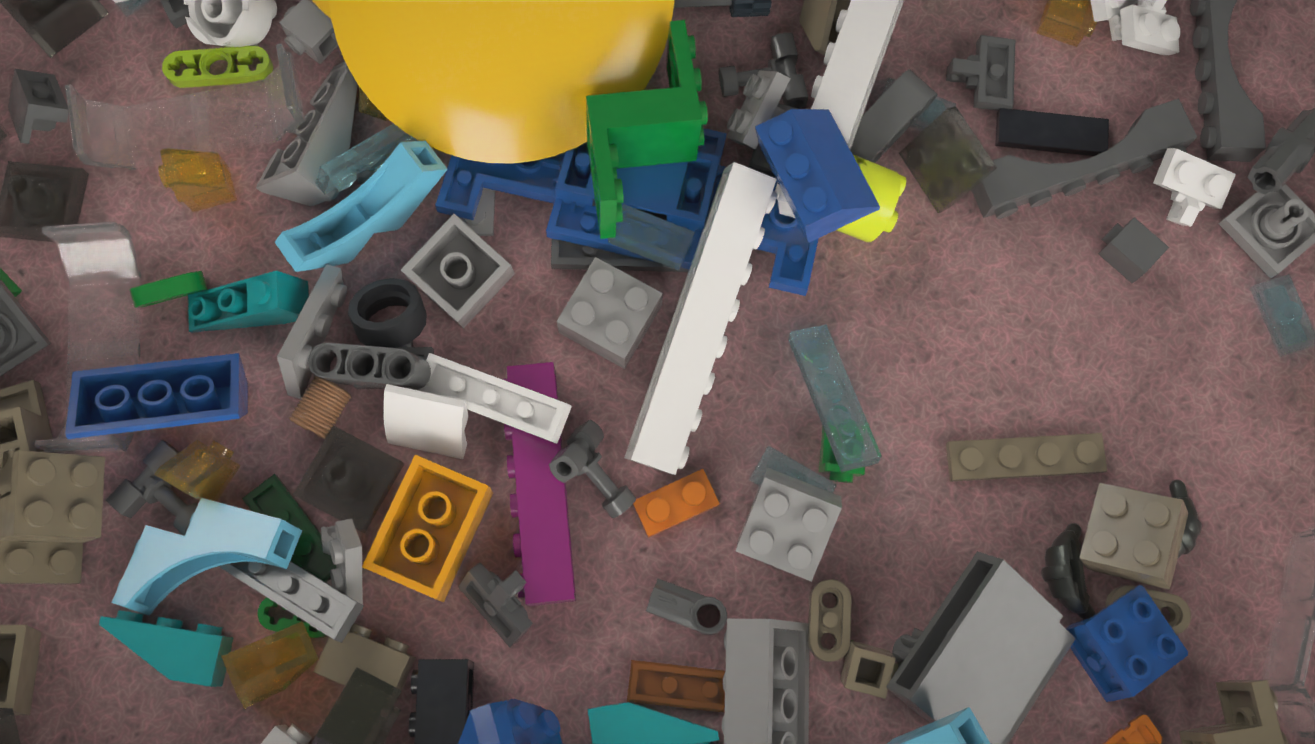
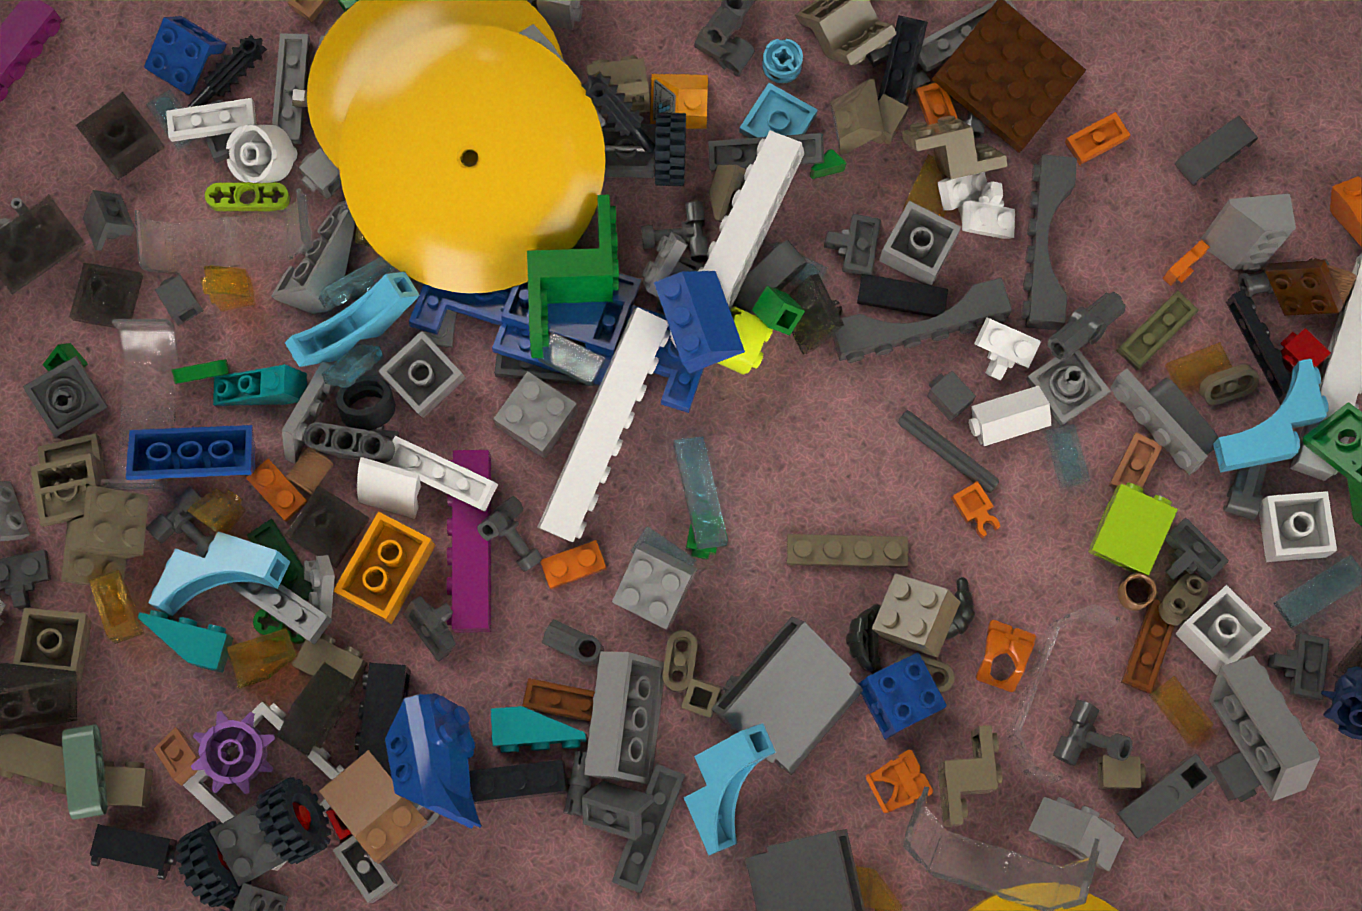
camera: 10 degrees right, 0 degrees up
(68, 611) = (116, 607): none -> clear yellow slope
(135, 200) = (178, 299): none -> dark grey brick
(279, 436) = (277, 490): none -> orange plate
(366, 267) = (352, 365): none -> clear light blue plate
(902, 155) = (778, 310): none -> green brick
(1070, 65) = (920, 243): none -> light grey brick
(1137, 321) = (948, 451): none -> dark grey axle
(1180, 385) = (973, 505): none -> orange plate
(1212, 269) = (1010, 416): none -> white brick
(1245, 559) = (1003, 640): none -> orange piece

